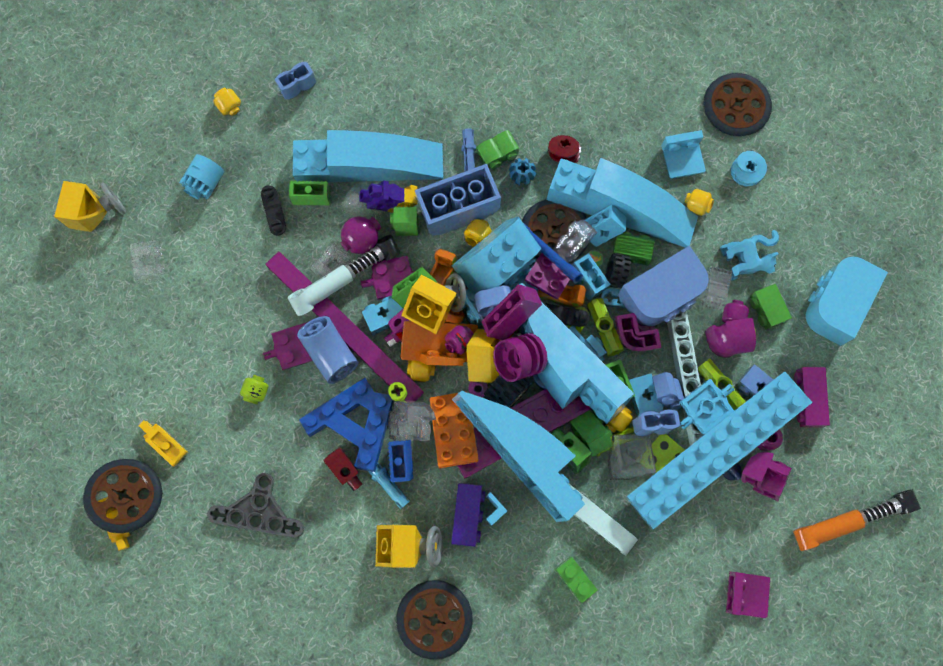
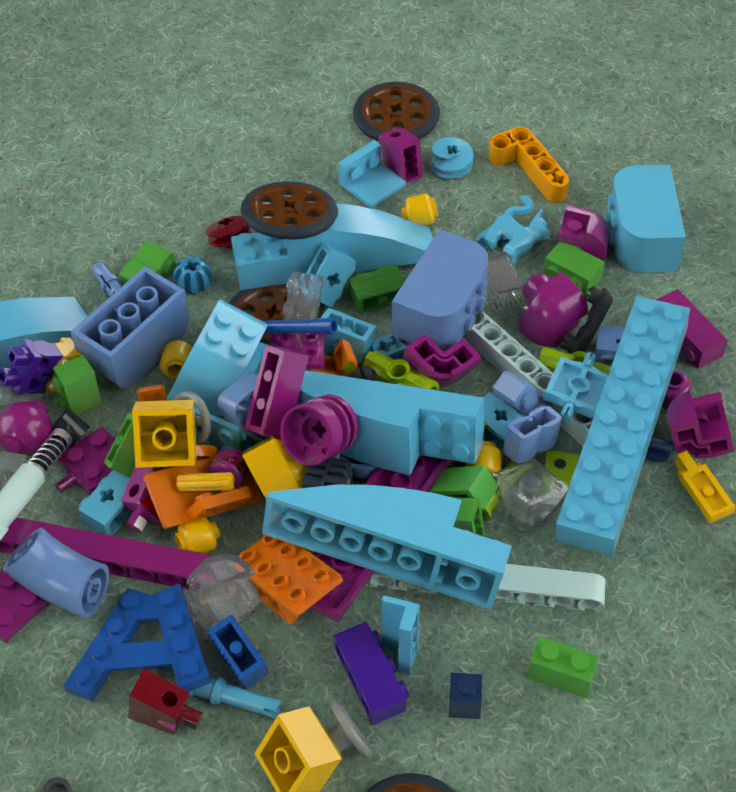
camera: 30 degrees left, 25 degrees down
(391, 390) = (187, 565): lime bush -> none
(438, 345) = (205, 481): none -> yellow axle
(510, 562) = (465, 695): none -> dark blue brick
(618, 270) = (375, 309): black tyre -> none
(623, 158) = (289, 210): none -> wedge
(715, 147) = (402, 154): none -> magenta torso
(740, 515) = (703, 488): none -> yellow hinge
(762, 354) = (601, 303): none -> black piece
(796, 285) = (585, 229): none -> magenta brick
(799, 206) = (524, 148): none -> light orange beam

